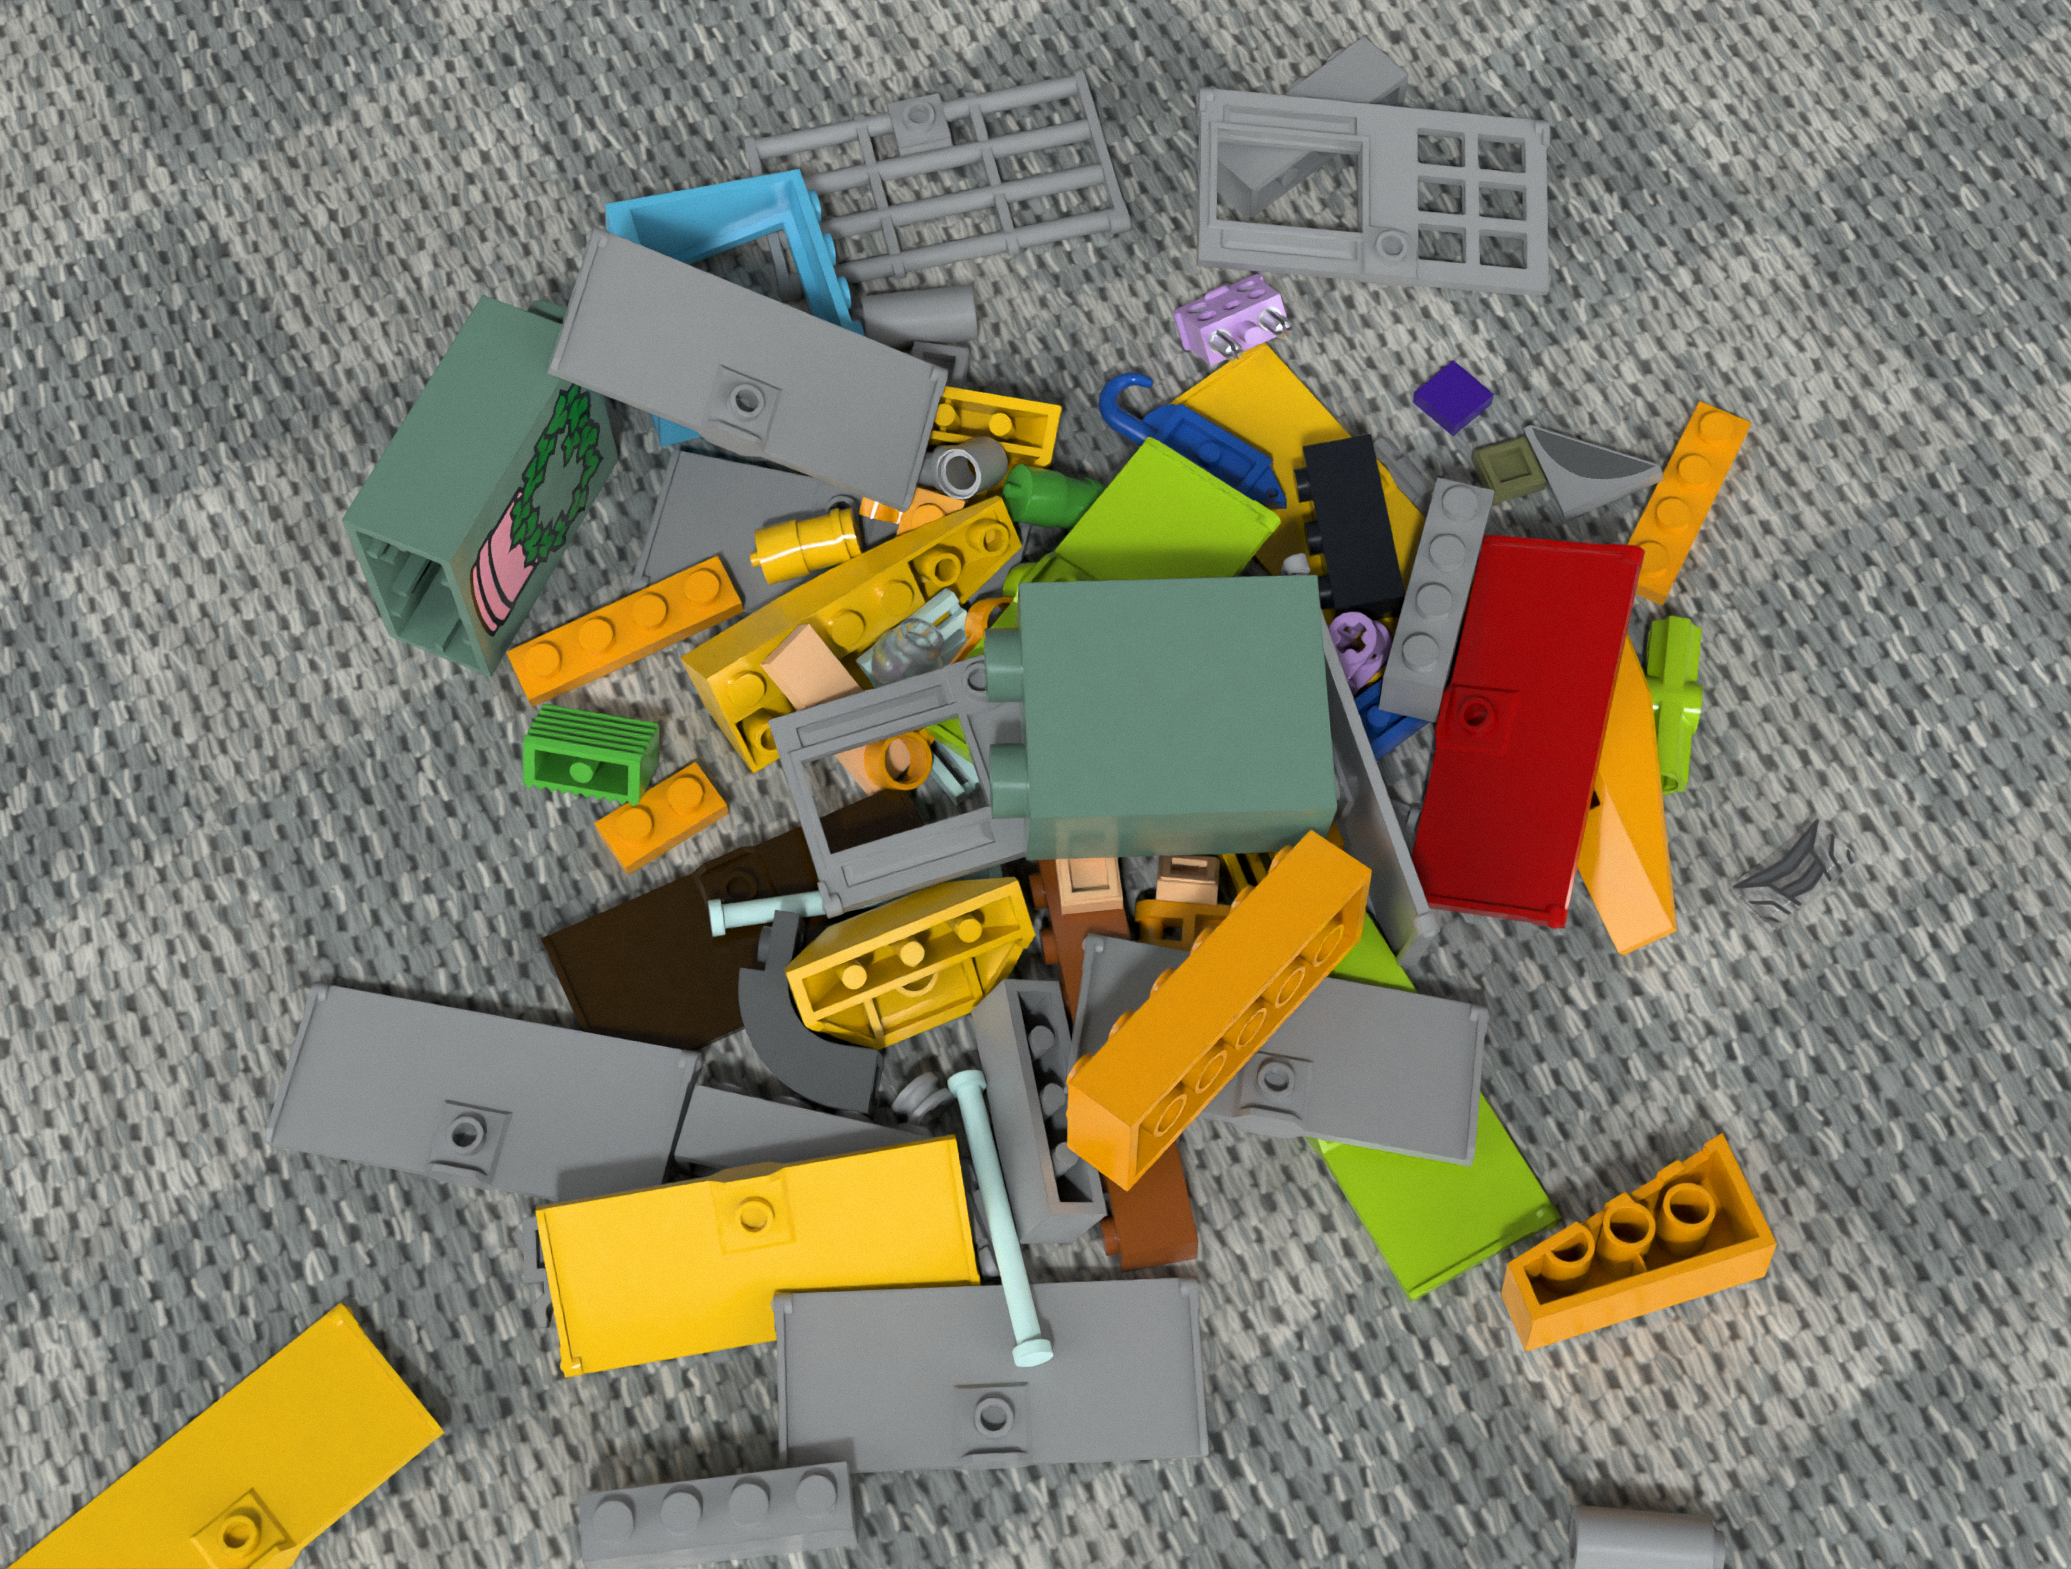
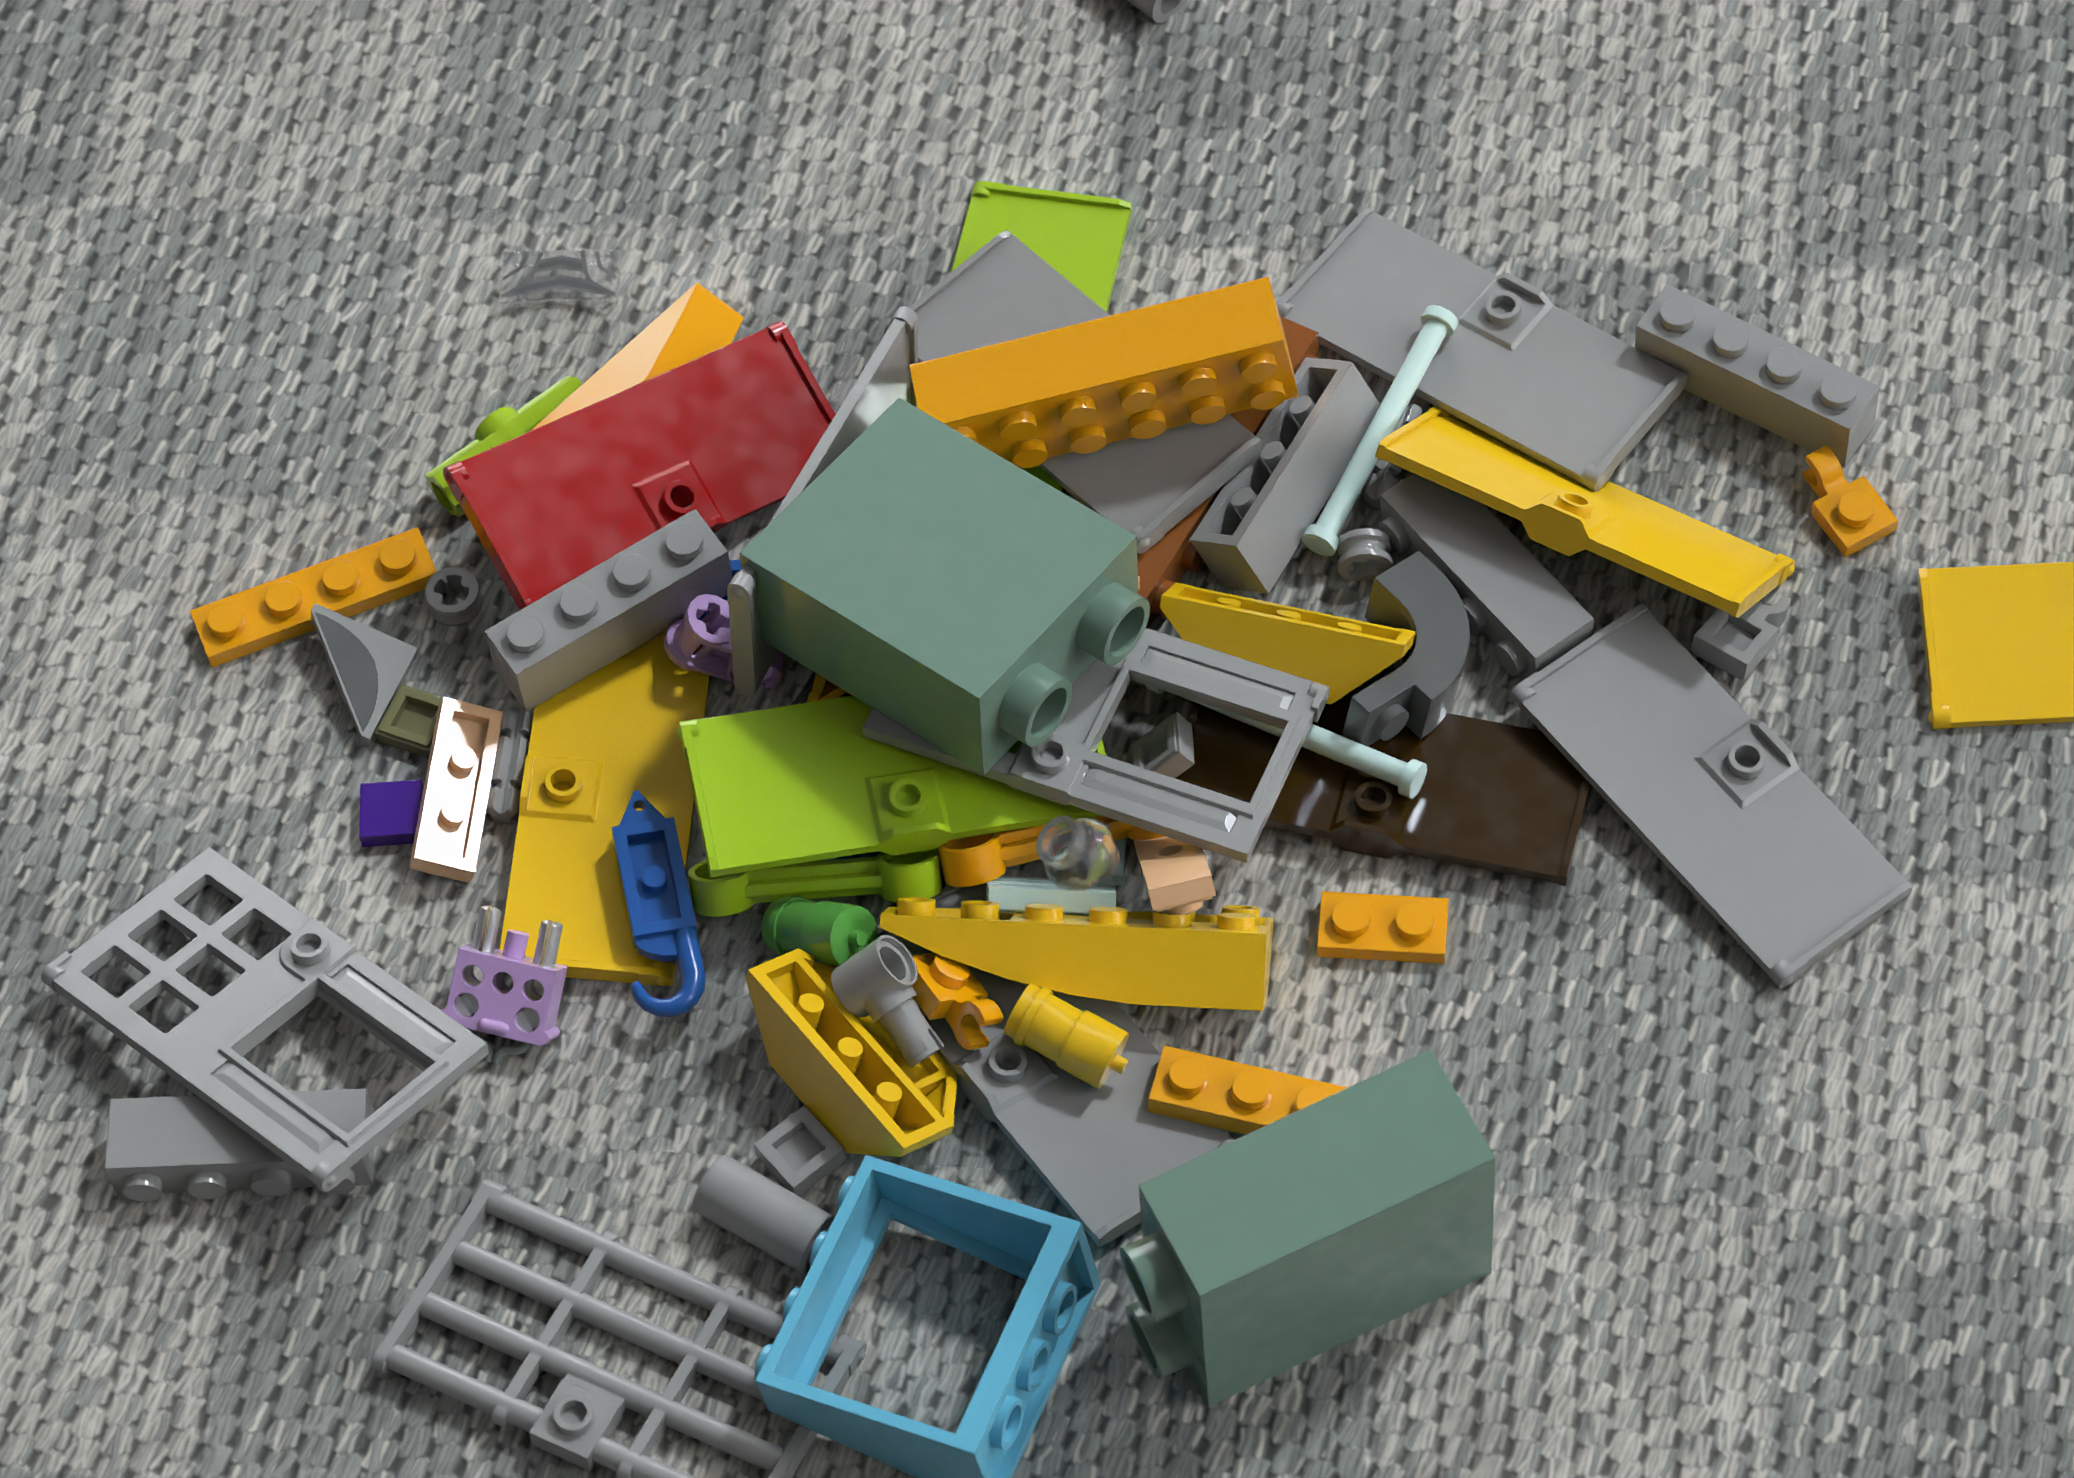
camera: 135 degrees left, 5 degrees down
(550, 1458) = (1847, 512): none -> light orange plate
(590, 754) = (1400, 995): bright green brick -> none
(747, 370) = (1013, 1113): light grey door -> none
(928, 804) = (1166, 747): none -> light grey tile
(1350, 528) = (614, 717): black brick -> none
(1418, 426) = (456, 790): none -> plate
(1644, 1252) = (950, 108): light orange wedge -> none

